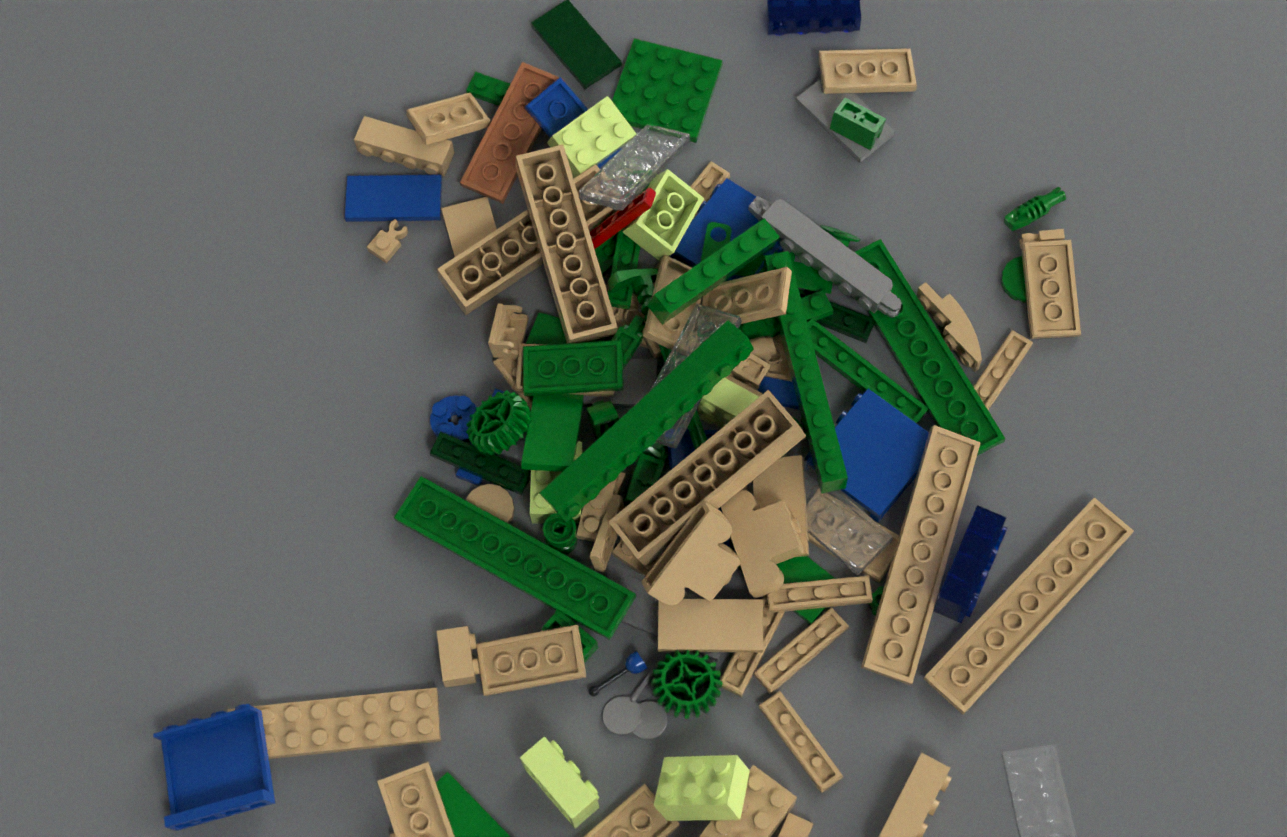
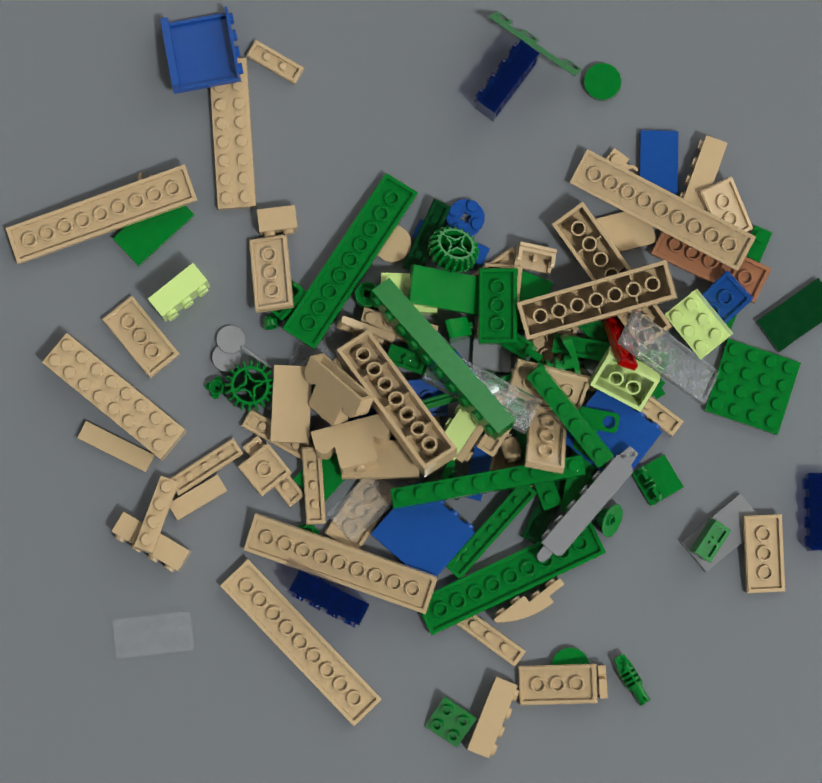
camera: 85 degrees right, 15 degrees up
(222, 343) = (533, 43): none -> green piece
(235, 671) = (275, 62): none -> tan tile
(275, 369) = (507, 80): none -> clear blue brick
(280, 264) = (602, 81): none -> green tile
(446, 185) = (663, 210): none -> tan plate
(597, 661) = (270, 322): none -> green hinge
(633, 664) = (267, 348): hinge -> none
(682, 730) = (211, 387): none -> green plate
(702, 788) = (168, 391): yellowish green brick -> none
(787, 184) = (657, 480): none -> green hinge
(801, 659) = (264, 469): none -> tan tile
(844, 751) = (197, 497): none -> tan tile
(875, 800) = (156, 515): none -> tan plate
(1101, 364) = (492, 717): none -> tan brick
(1112, 414) = (450, 722): none -> green hinge

